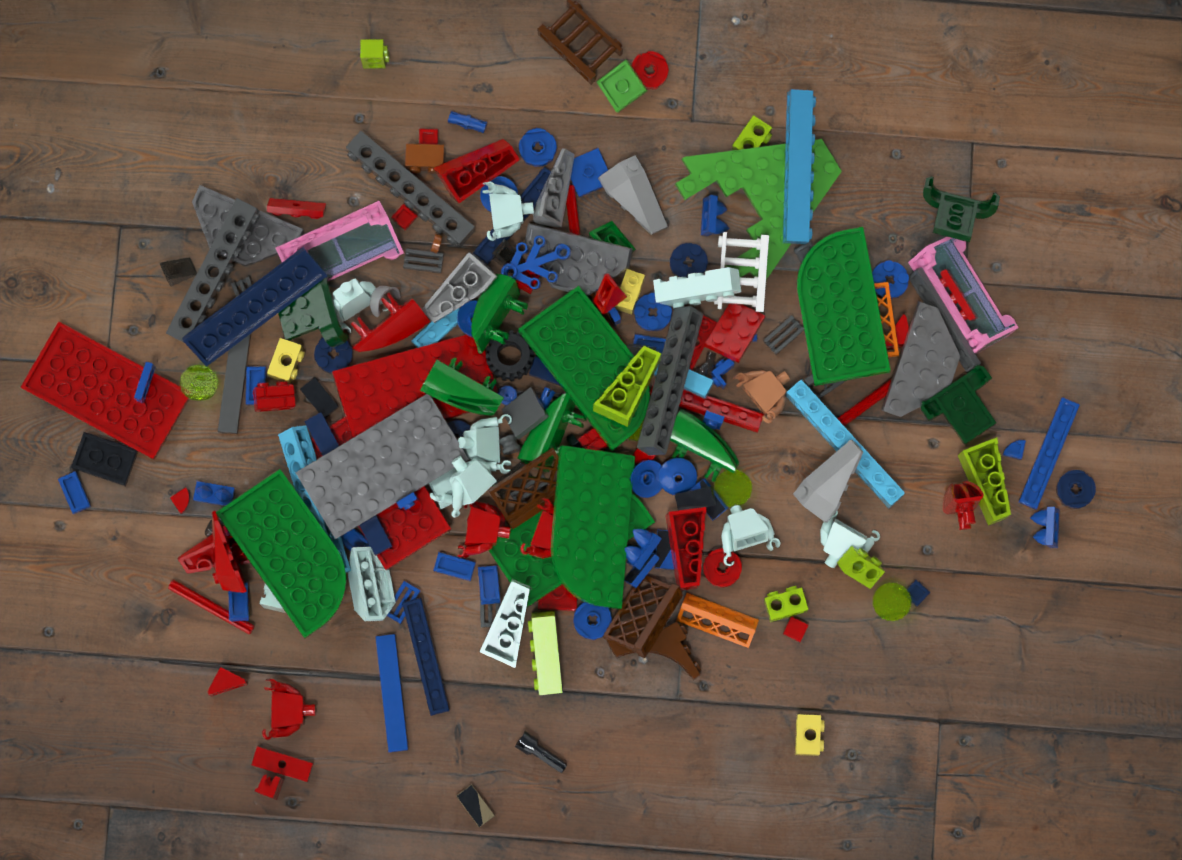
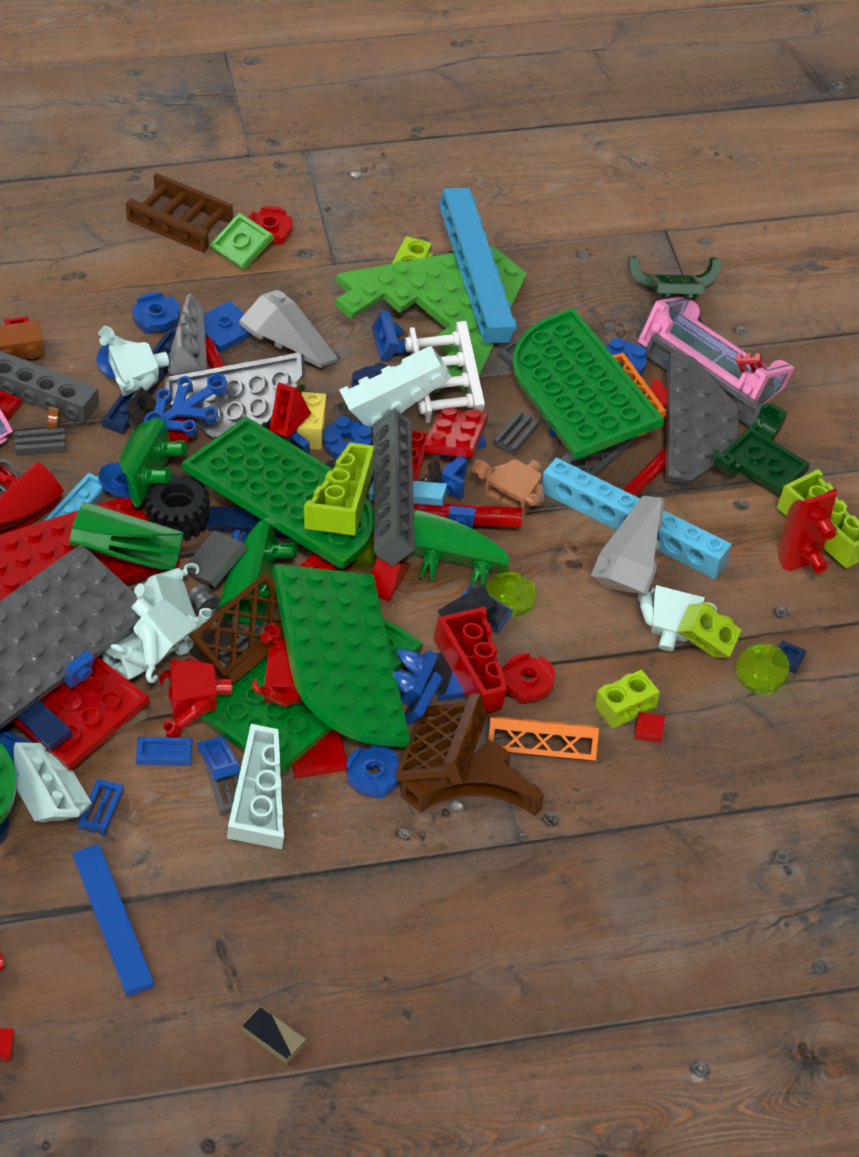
camera: 20 degrees left, 30 degrees down
(425, 656) = (151, 863): dark blue tile -> none
(463, 284) = (97, 444): light grey wedge -> none
(467, 122) = (62, 304): blue pin -> none
(469, 172) = (78, 339): red wedge -> none
(508, 393) = (187, 550): blue tile -> none
(529, 745) = (337, 938): black piece -> none
(546, 653) = (321, 815): wedge -> none
(649, 486) = (397, 599): blue dish -> none
(675, 467) = (424, 596): blue dish -> none
(746, 529) = (546, 624): light aqua torso -> none
(805, 746) = (716, 853): light yellow brick -> none
(957, 295) = (710, 351): red tile -> none
(982, 326) = (752, 361): none -> red tile
(1015, 450) = (846, 489): blue tile -> none

